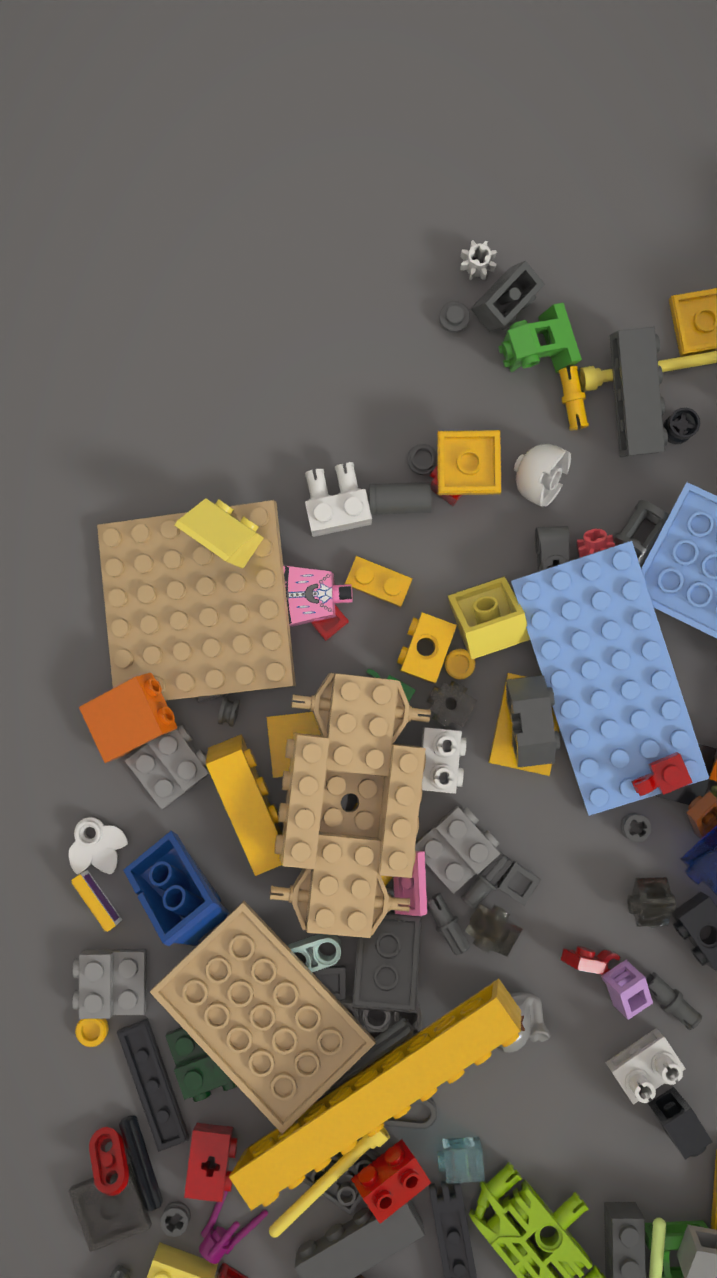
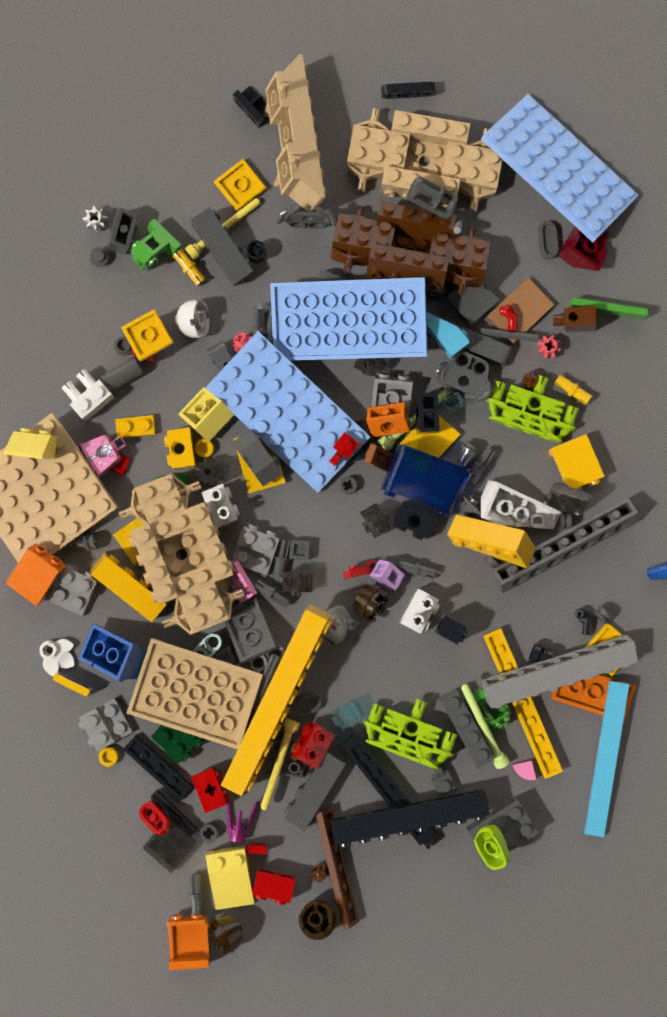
camera: 30 degrees left, 0 degrees up
(582, 1016) = (370, 601): none -> dark brown cone

